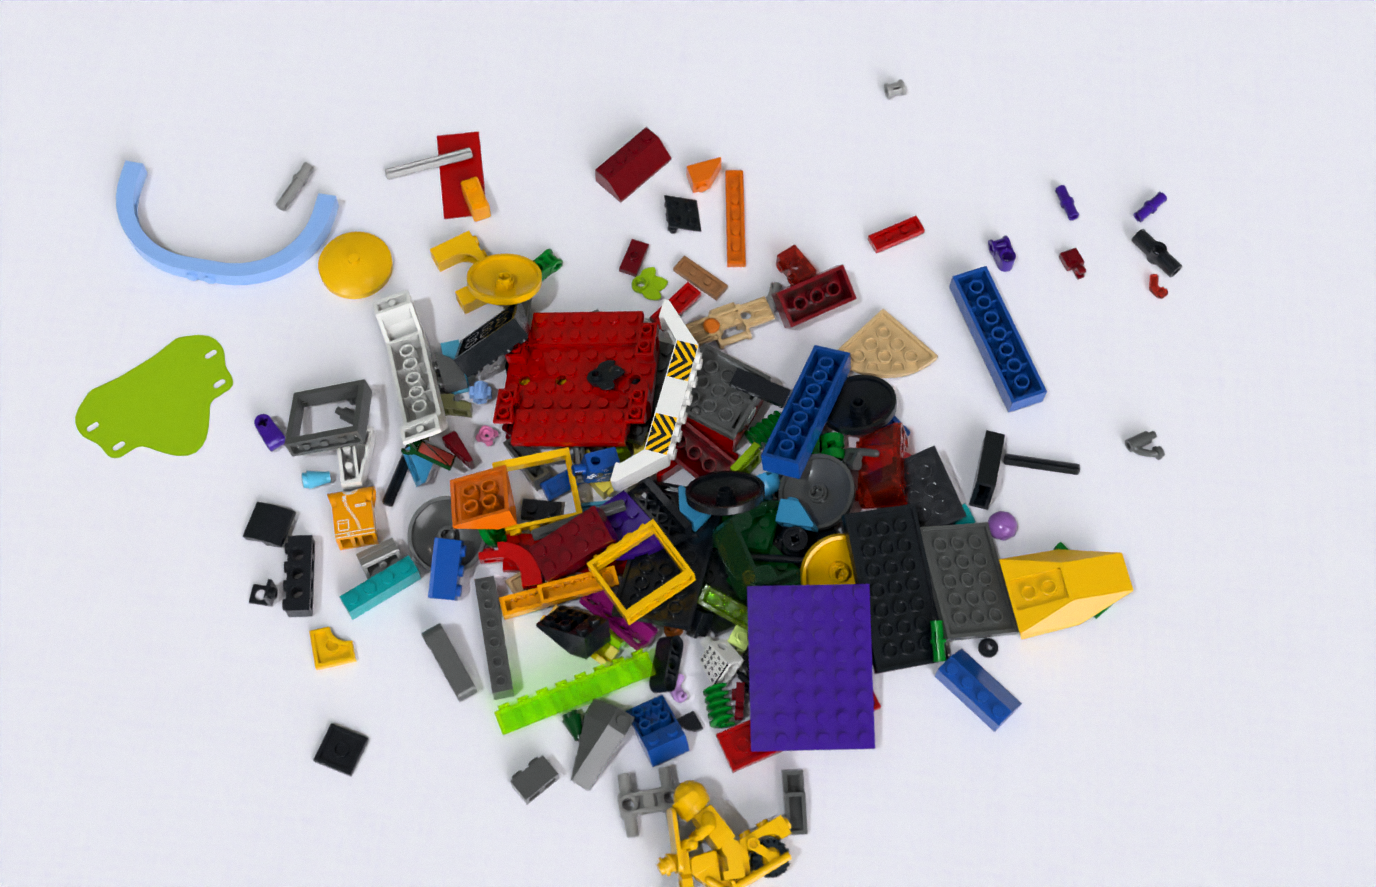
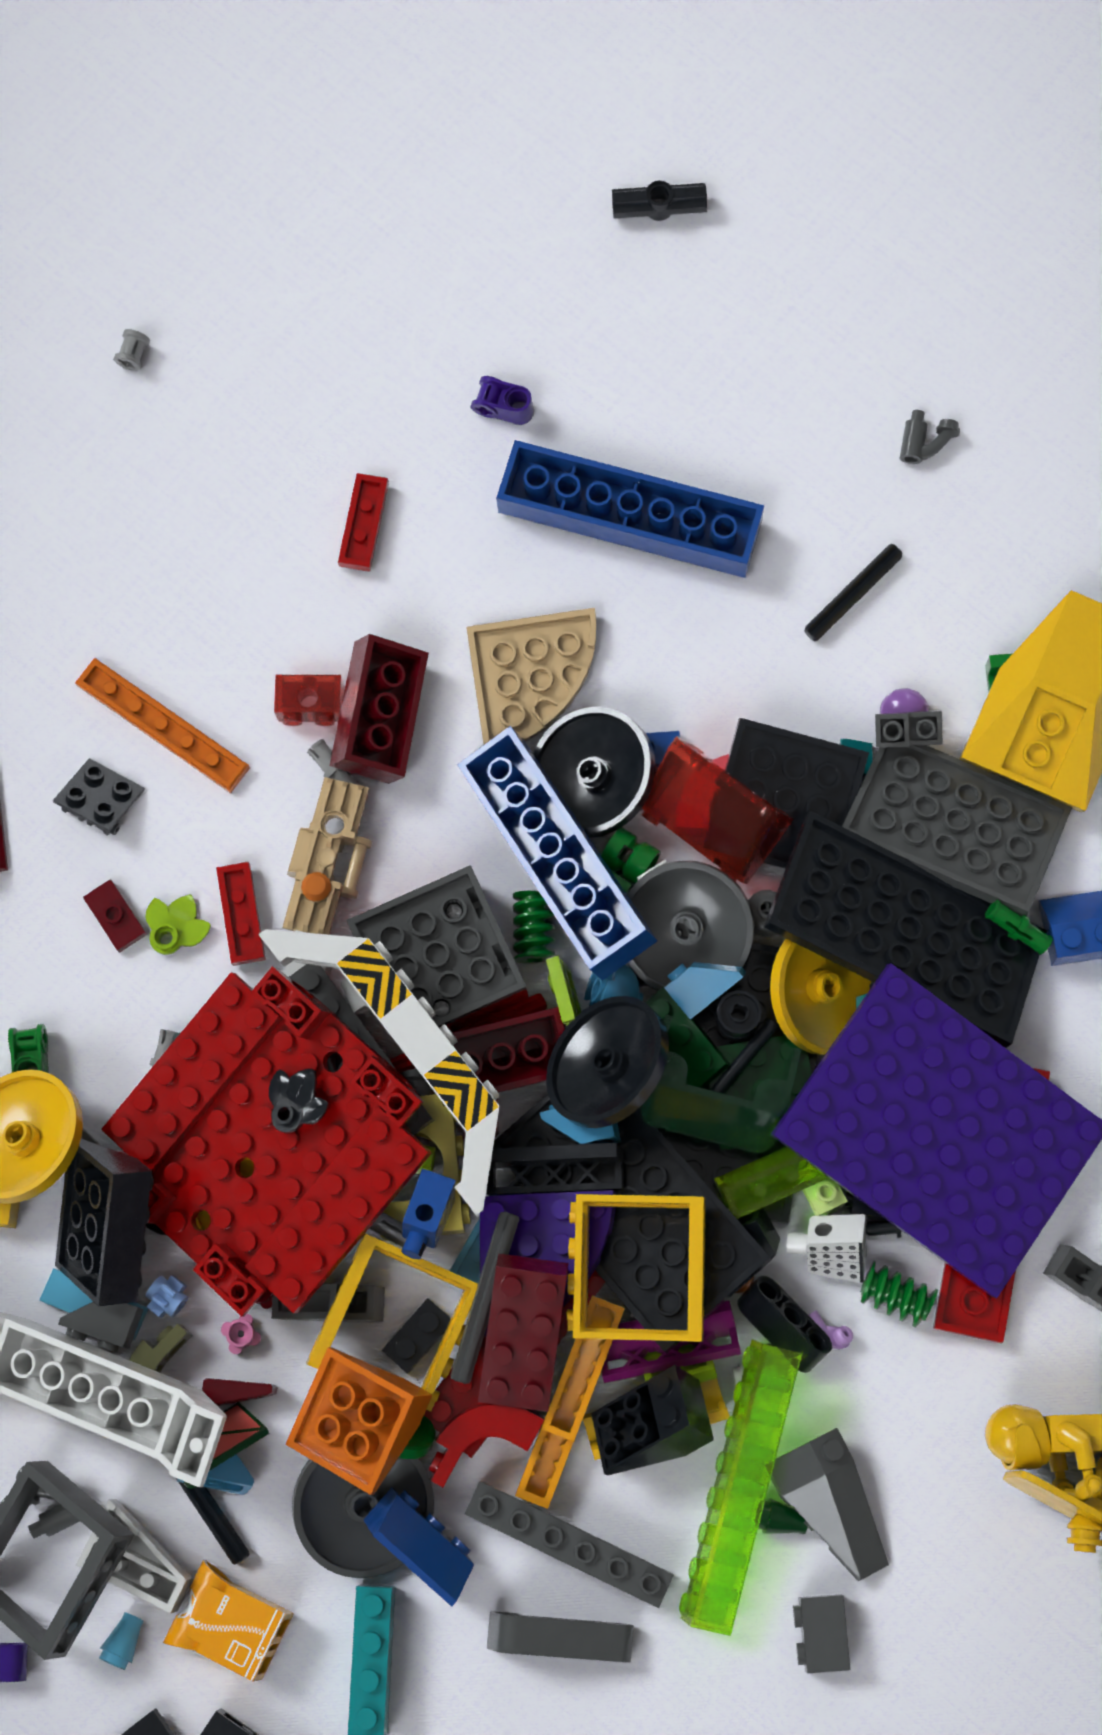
camera: 45 degrees left, 10 degrees up
(378, 557) = (324, 1631): light grey brick -> none
(515, 583) = (507, 1454): tan tile -> none
(556, 485) = (397, 1286): blue plate -> none
(644, 801) = (963, 1495): light grey piece -> none
(658, 730) = (869, 1404): blue slope -> none
(690, 722) = (888, 1350): black tile -> none
(700, 278) = (220, 844): medium nougat tile -> none
(703, 174) = (58, 720): orange slope -> none
(738, 697) = (900, 1256): dark red plate -> none
(760, 388) = (478, 893): black tile -> none
(854, 456) = (681, 843): dark grey piece -> none
(987, 470) = (813, 670): black slope -> none
(988, 653) = (1060, 874): black plate -> none
(994, 528) = (908, 729): none -> dark grey slope
(1067, 202) = (492, 256): dark purple pin -> none
(1073, 261) = (584, 317): dark red plate -> none
(1150, 206) = (583, 154): dark purple pin -> none
(1155, 289) = (708, 244): clear red arm -> none

